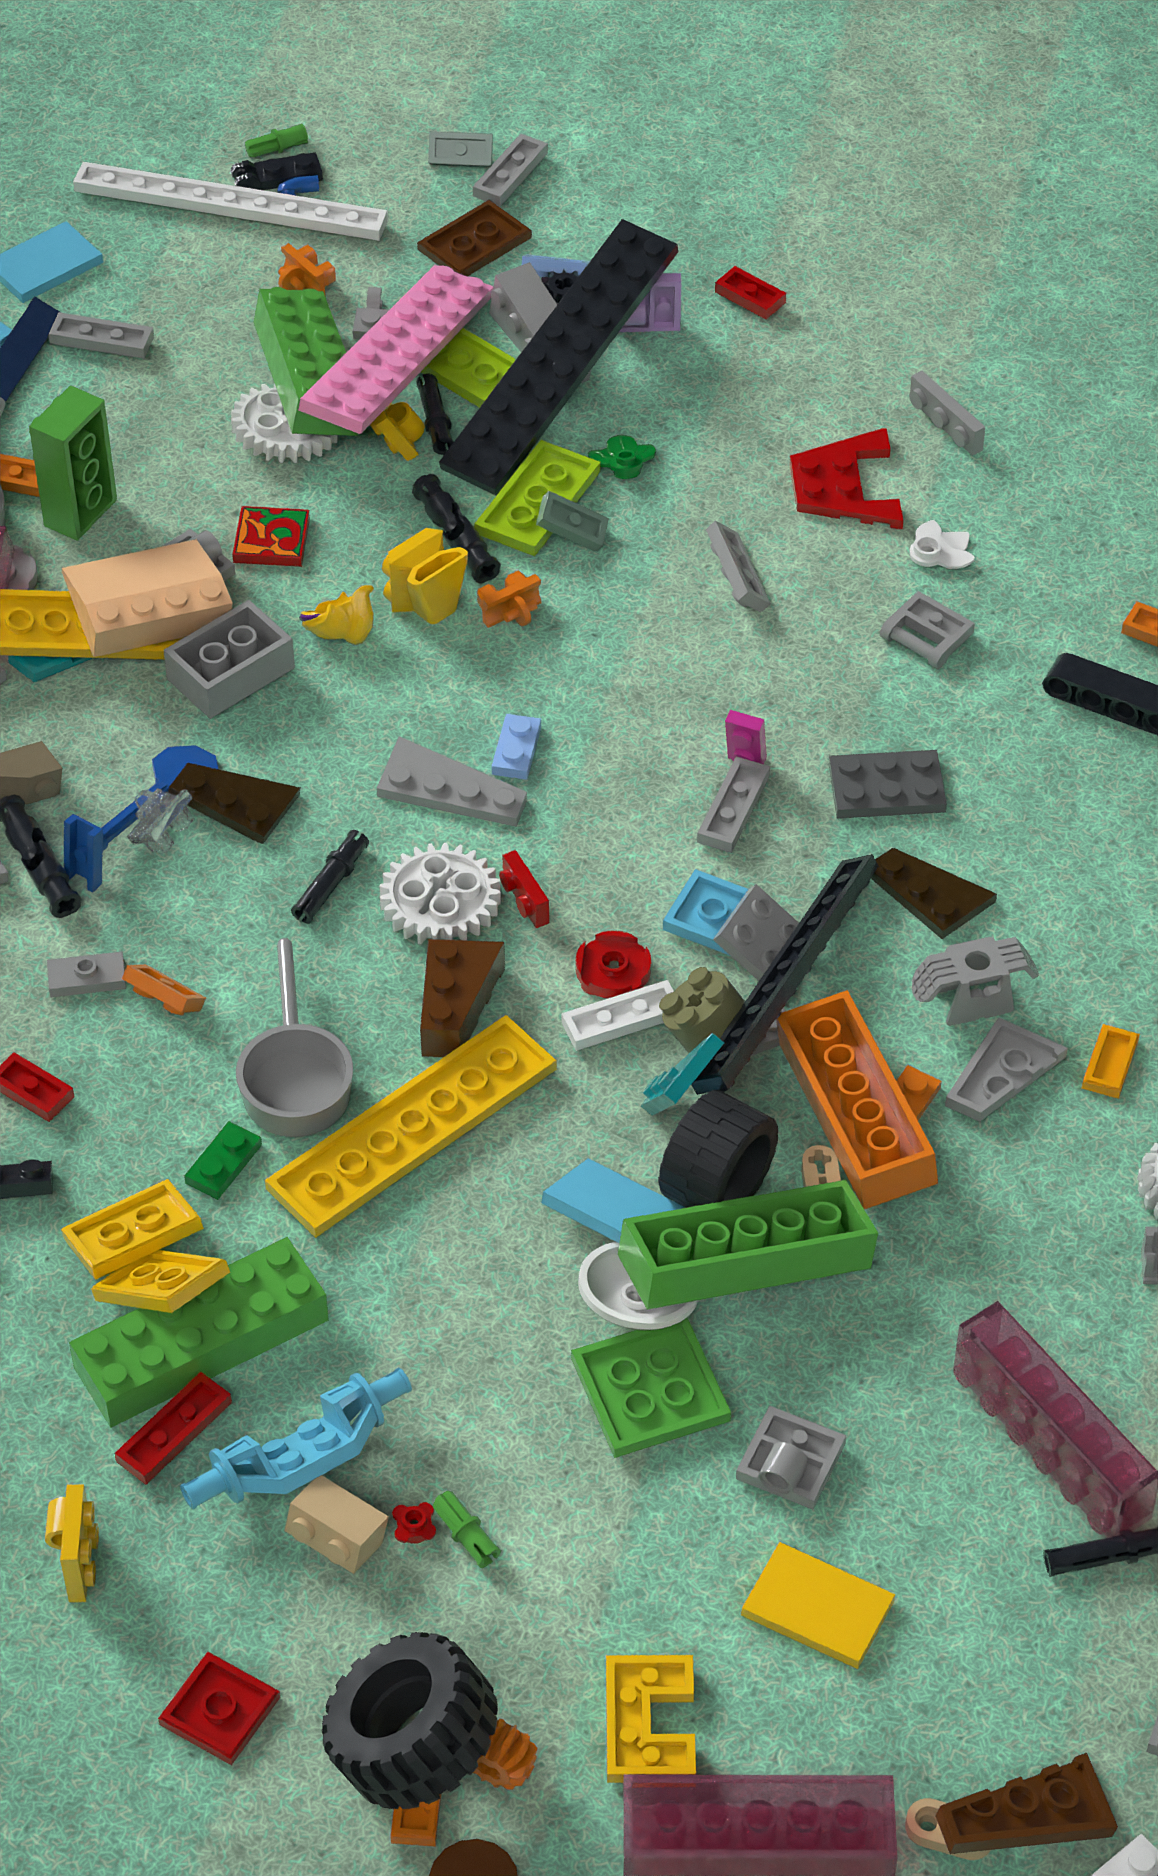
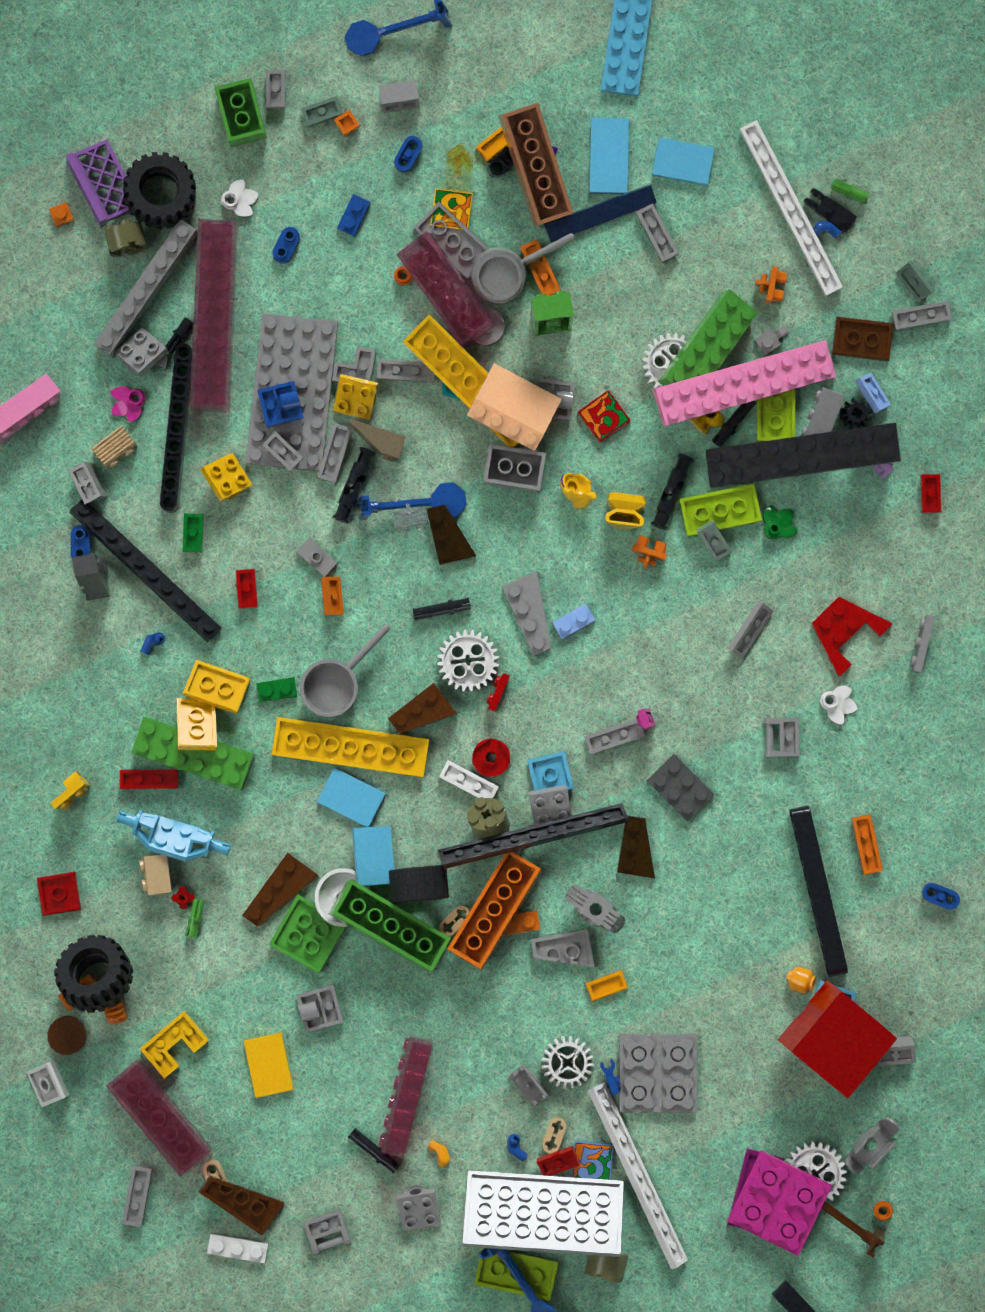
camera: 50 degrees right, 35 degrees up
(489, 1181) = (351, 797): none -> medium azure tile
(536, 1374) = (281, 886): none -> reddish brown wing
(671, 1085) = (438, 841): teal wing -> none

